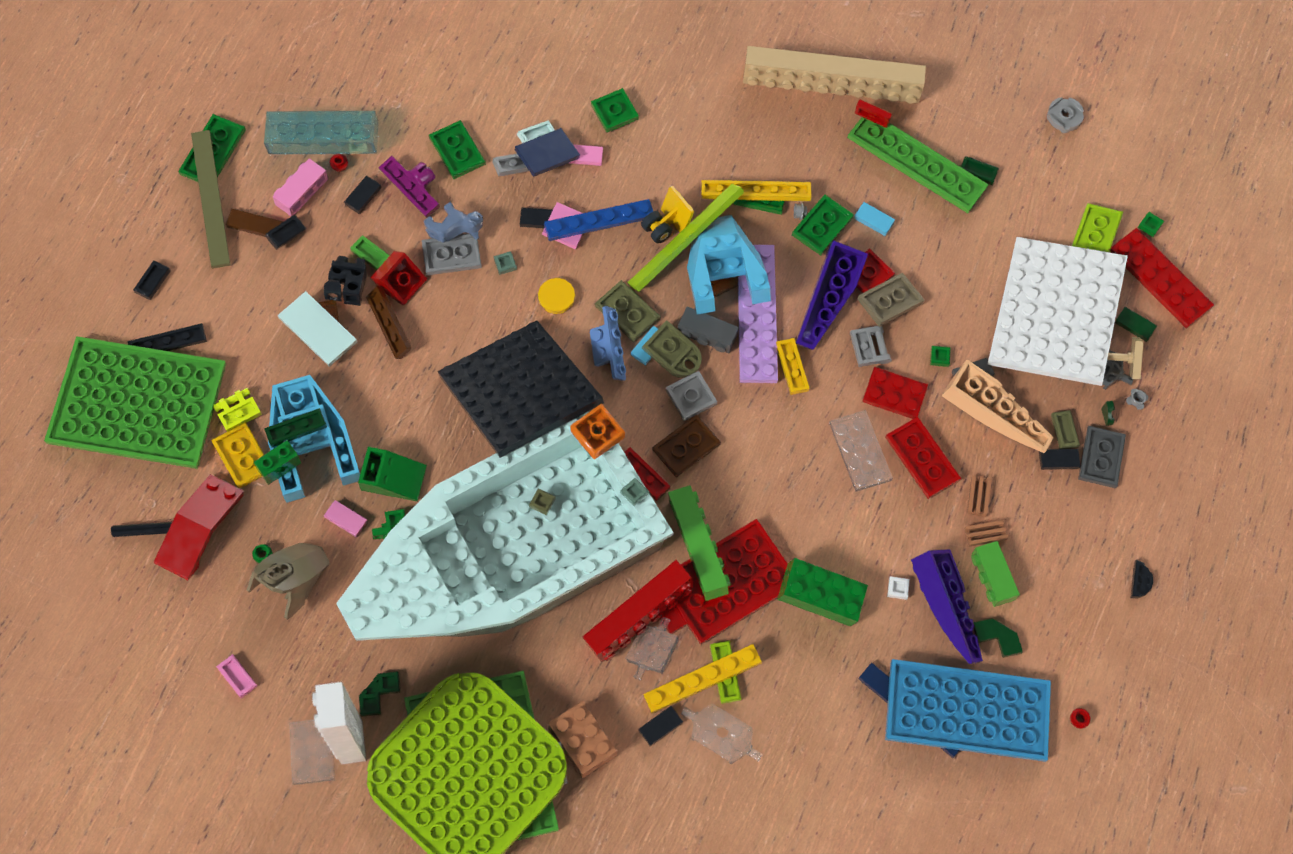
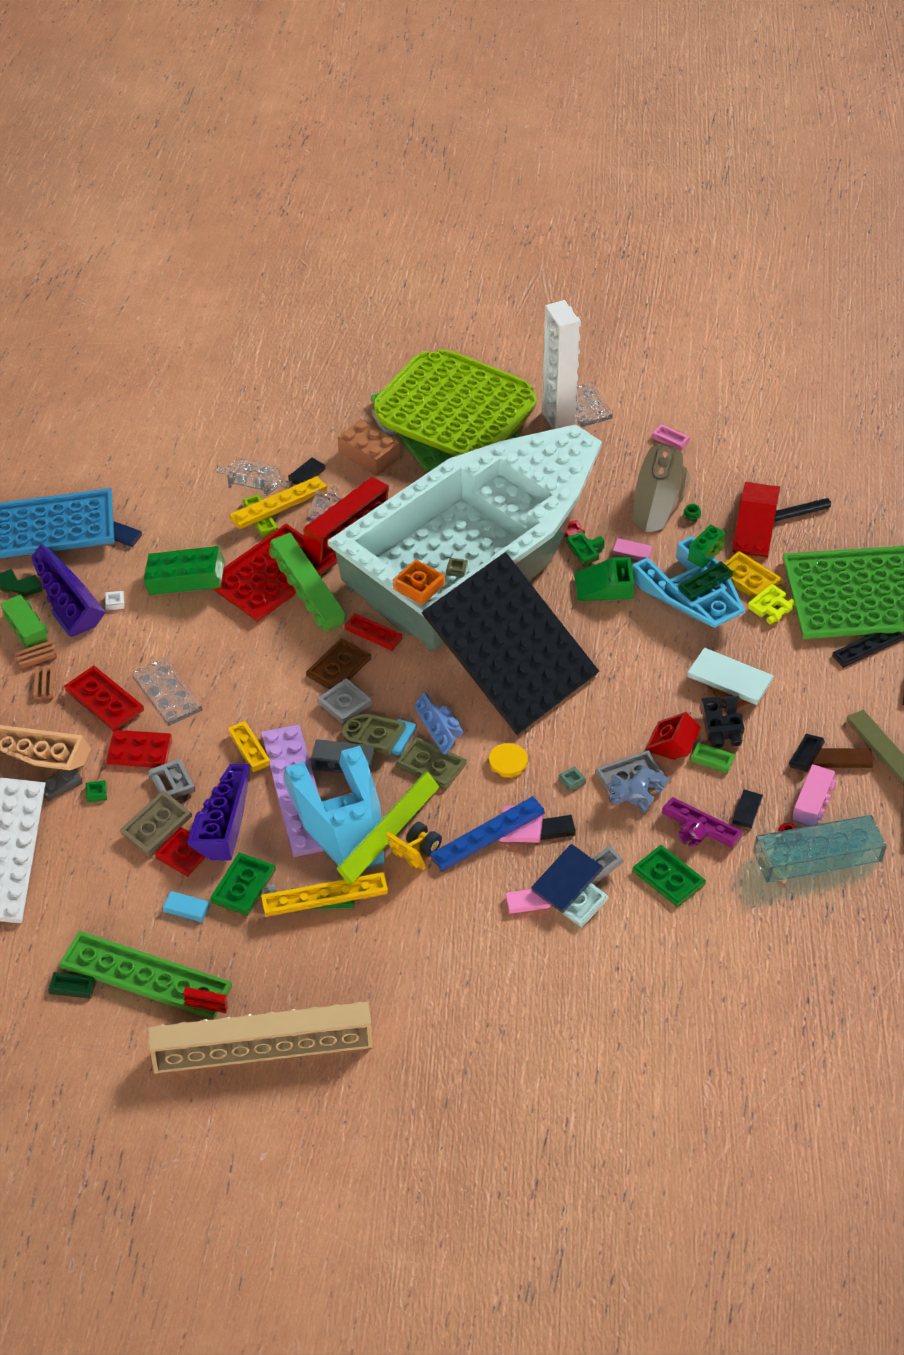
camera: 170 degrees right, 20 degrees down
(388, 322) = (659, 694): reddish brown plate -> none
(614, 110) = (509, 951): green plate -> none
(634, 492) = (371, 553): sand green tile -> none

